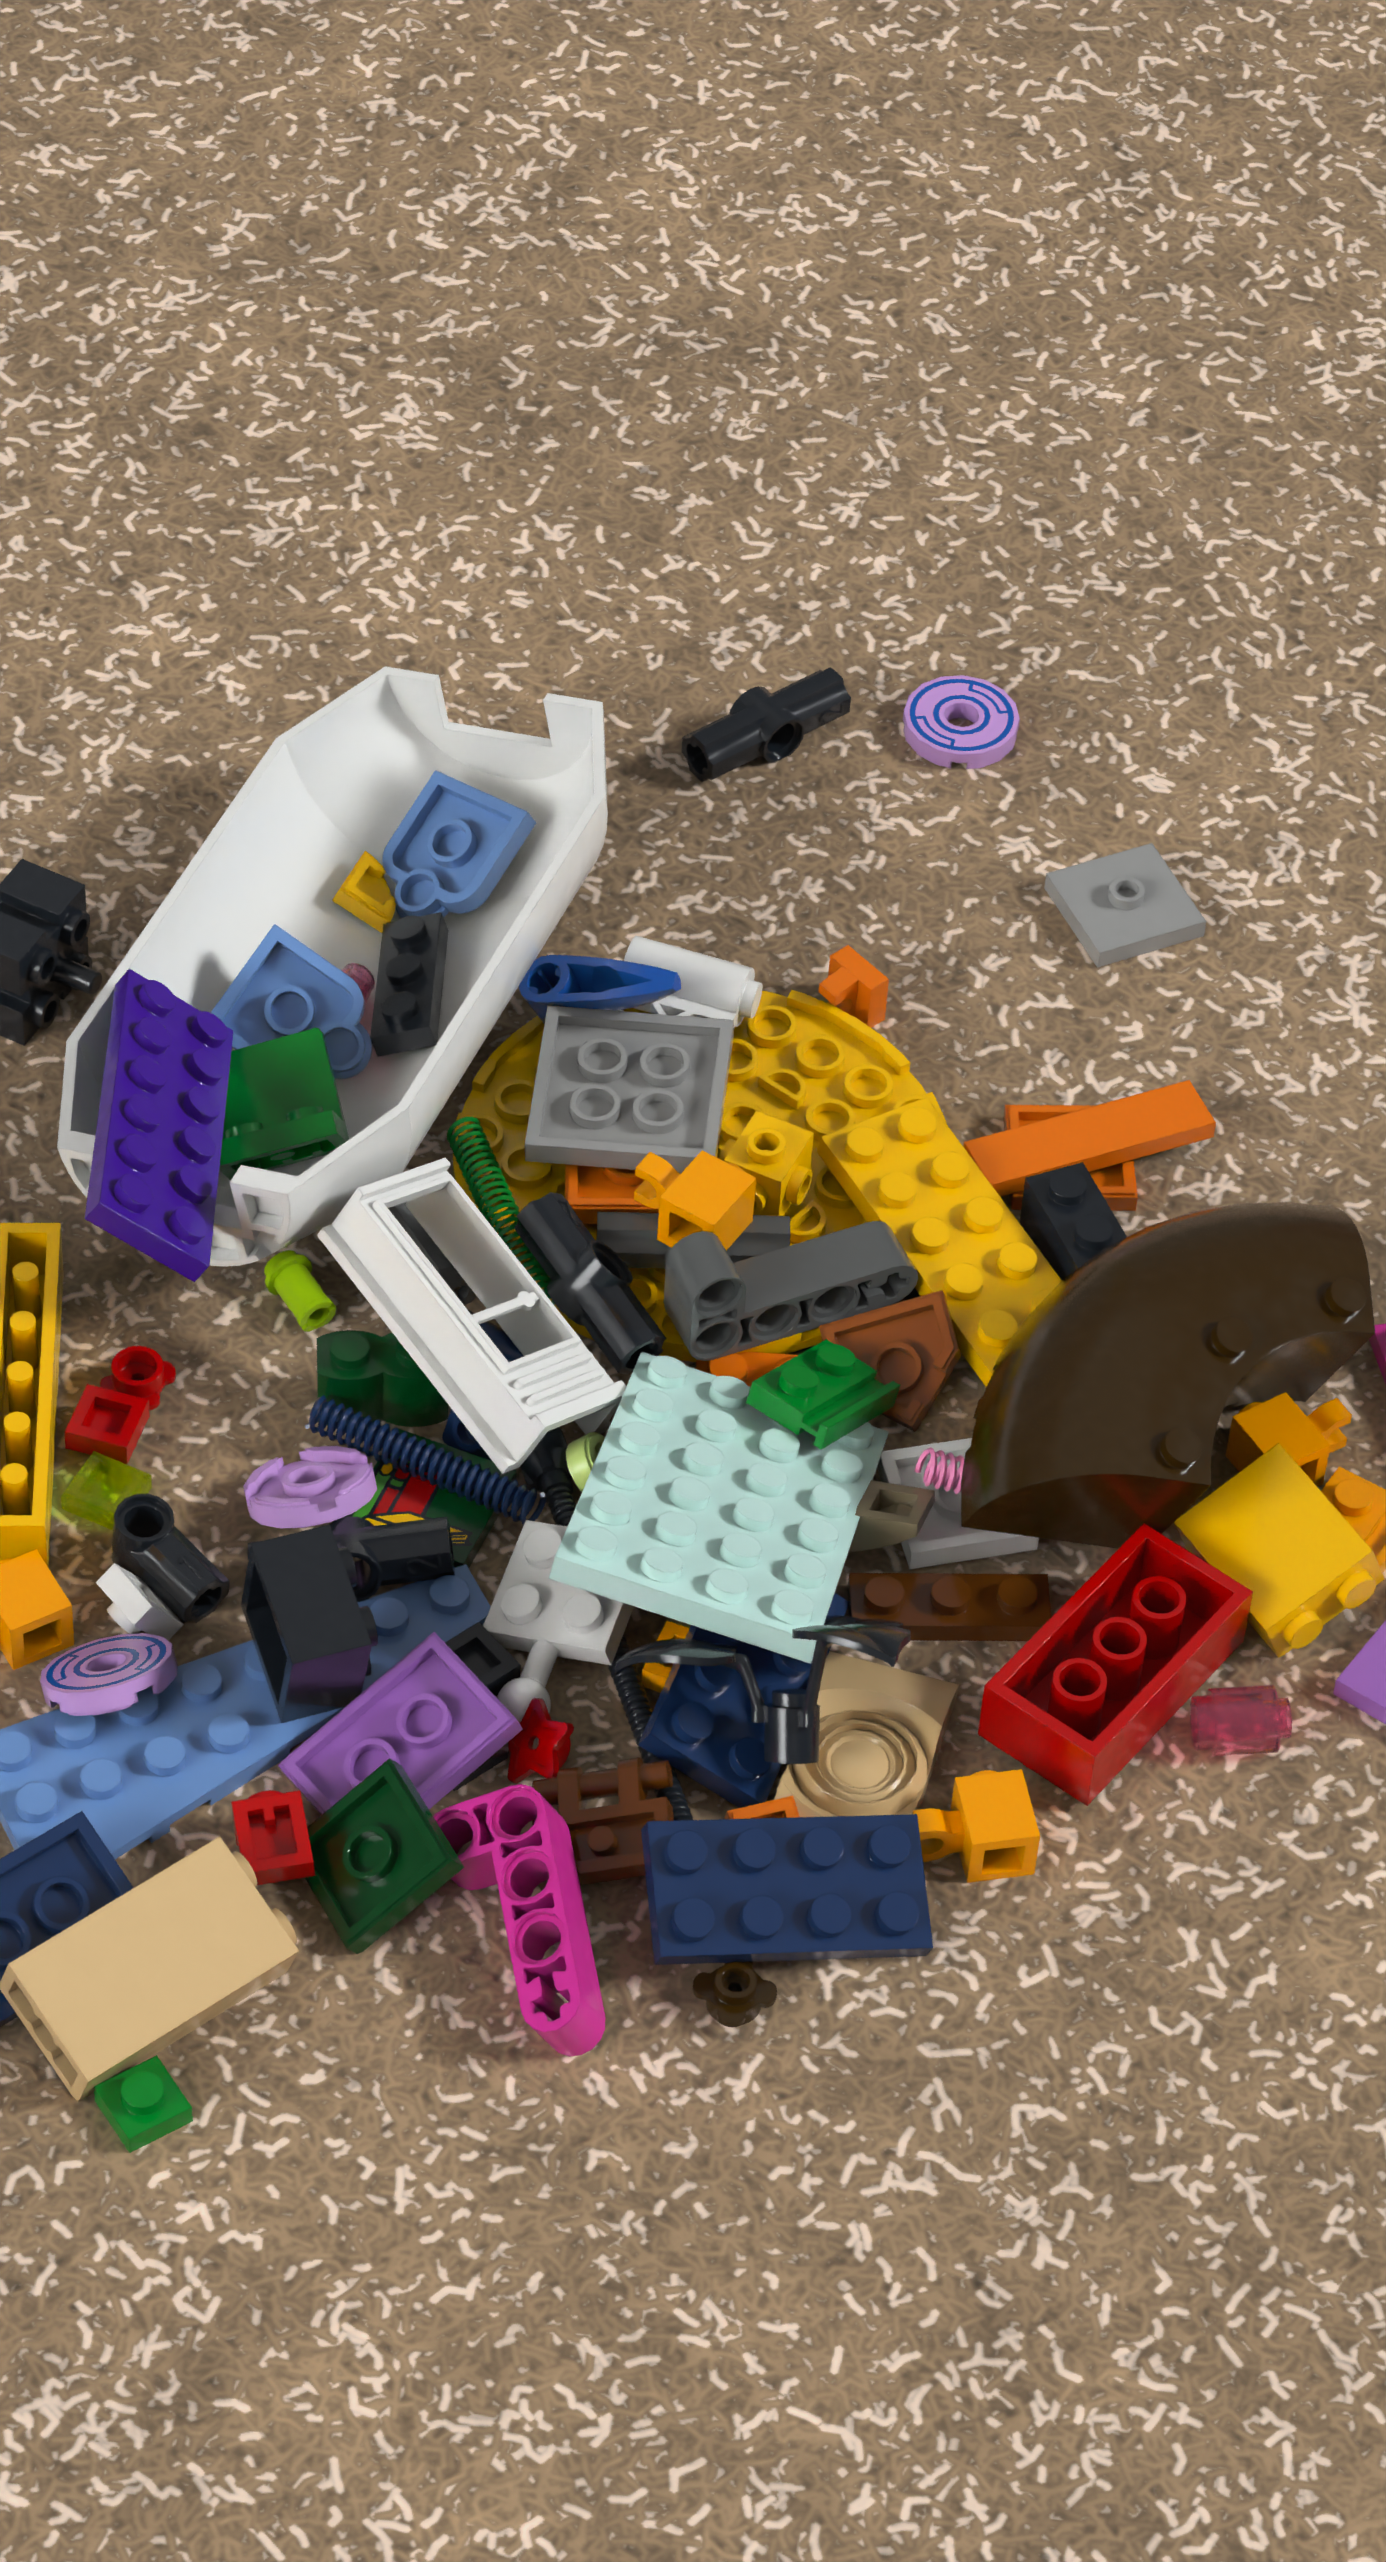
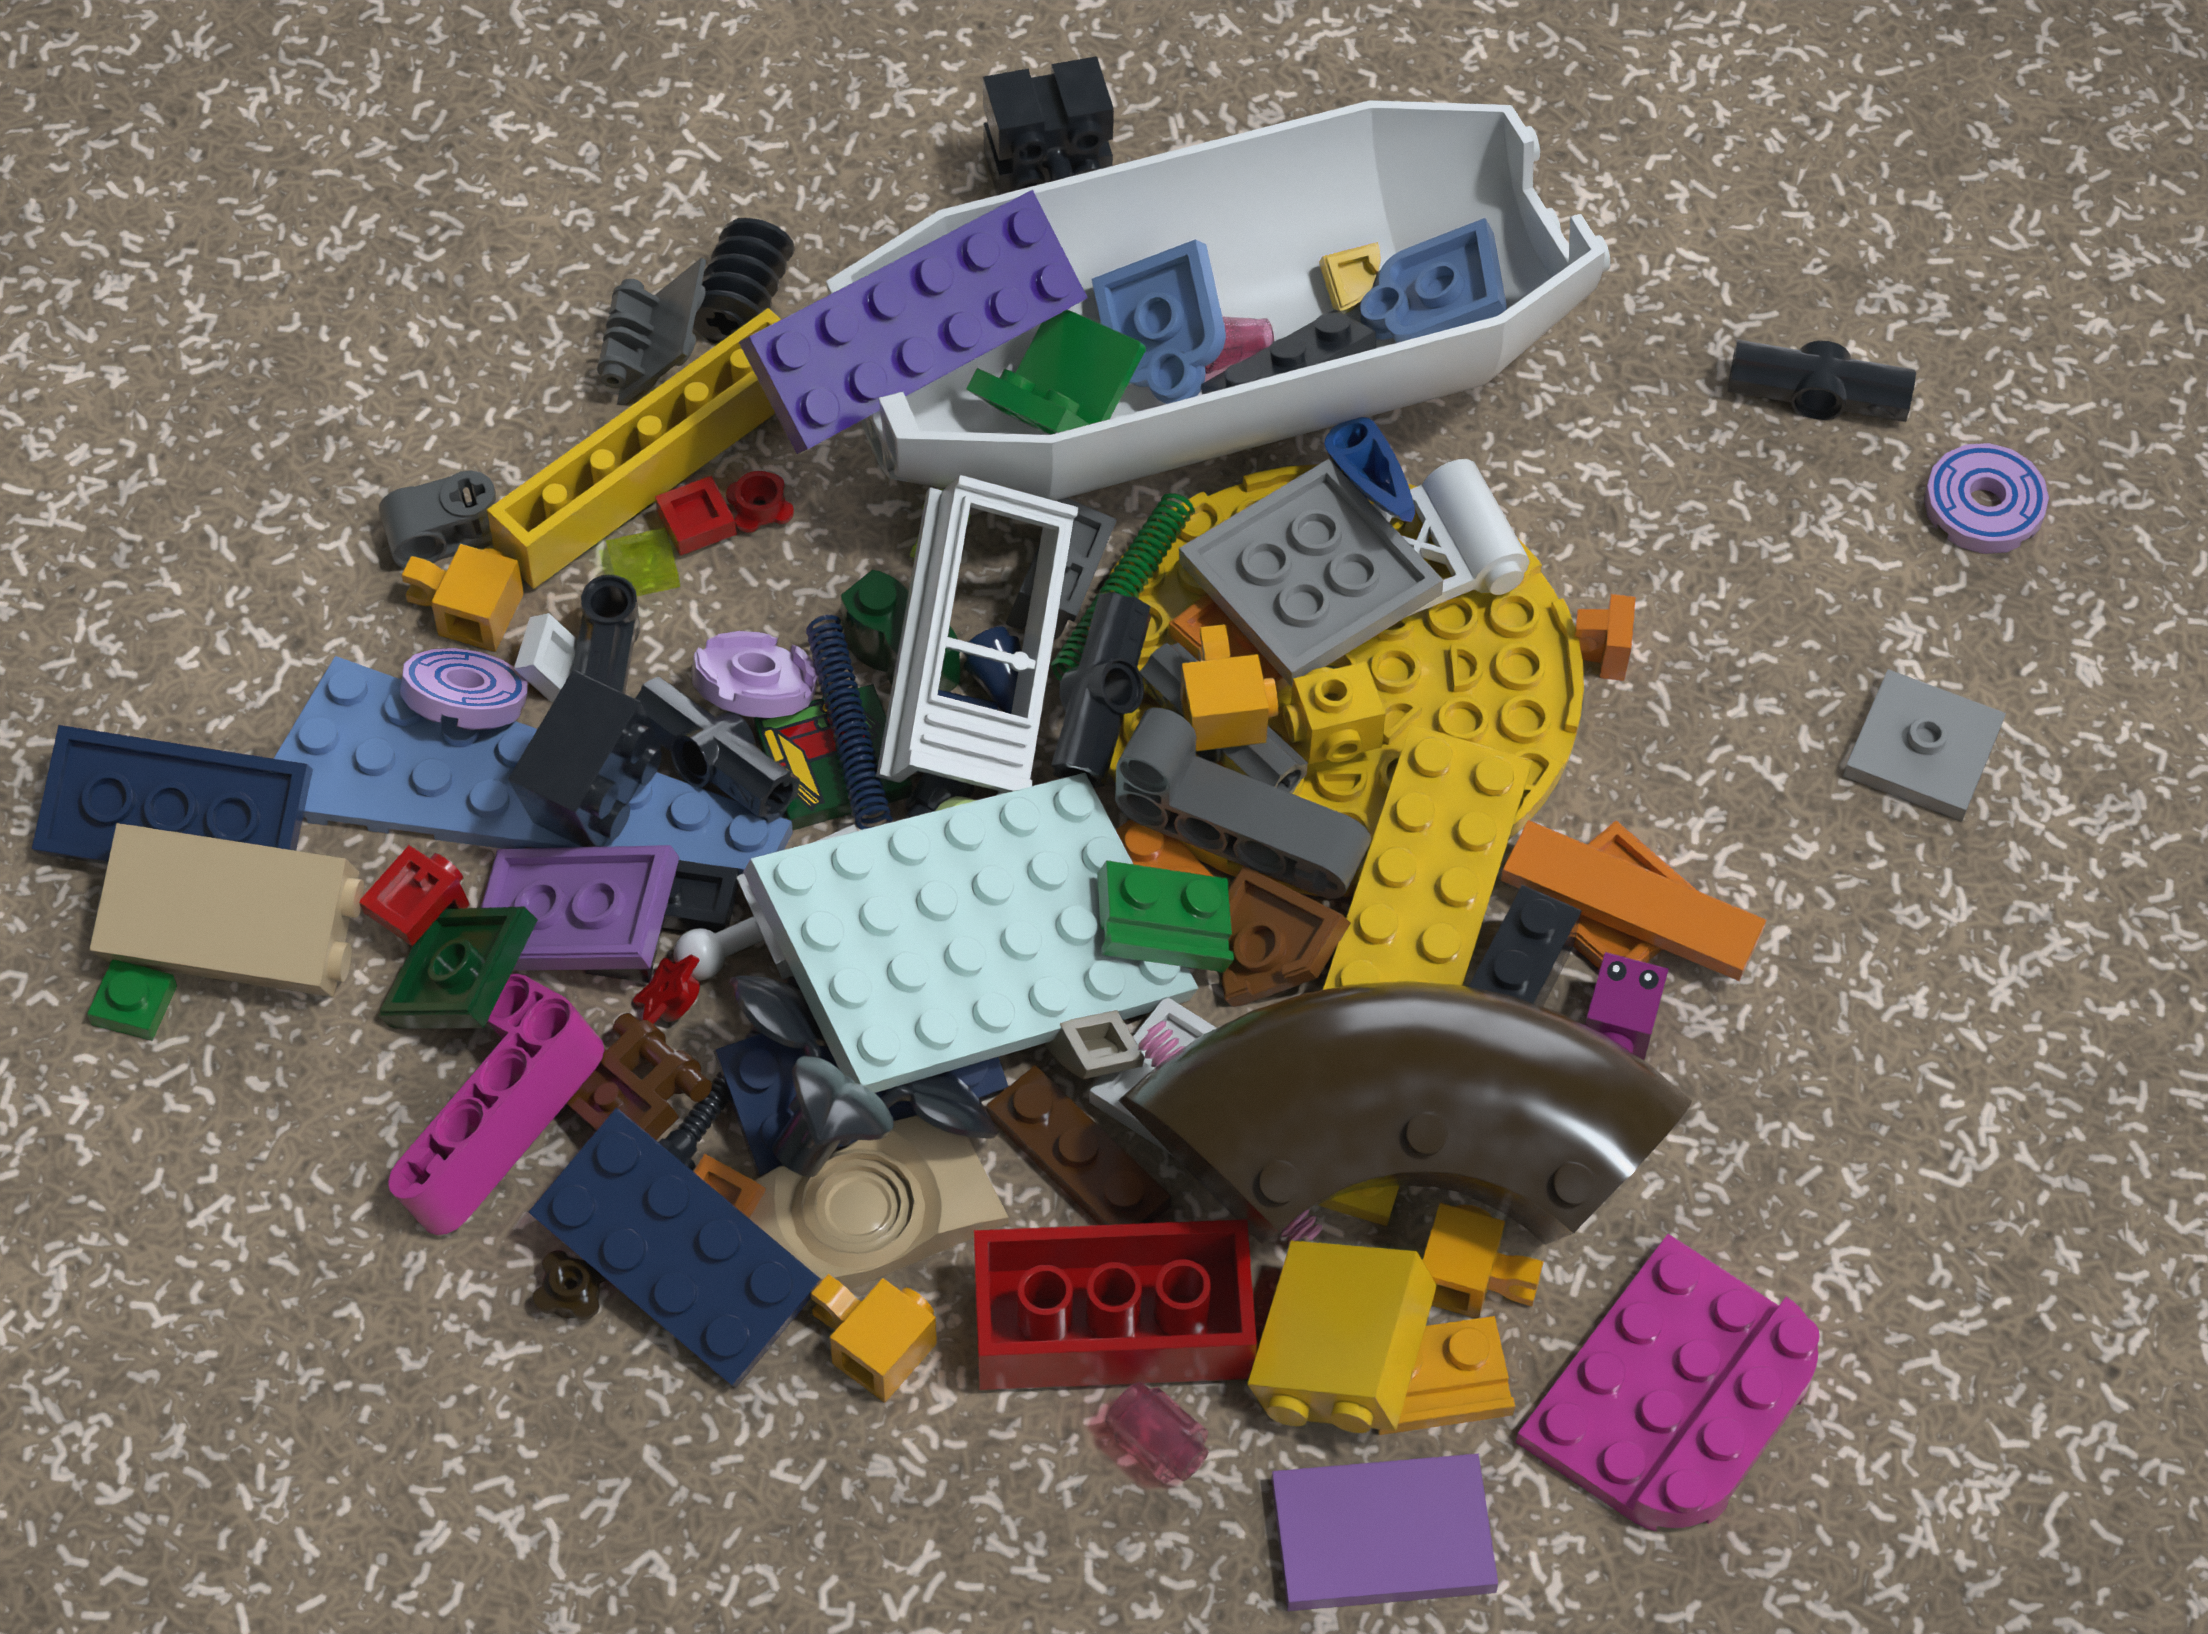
camera: 50 degrees right, 10 degrees up
(1162, 1194) = (1627, 1001): none -> magenta brick

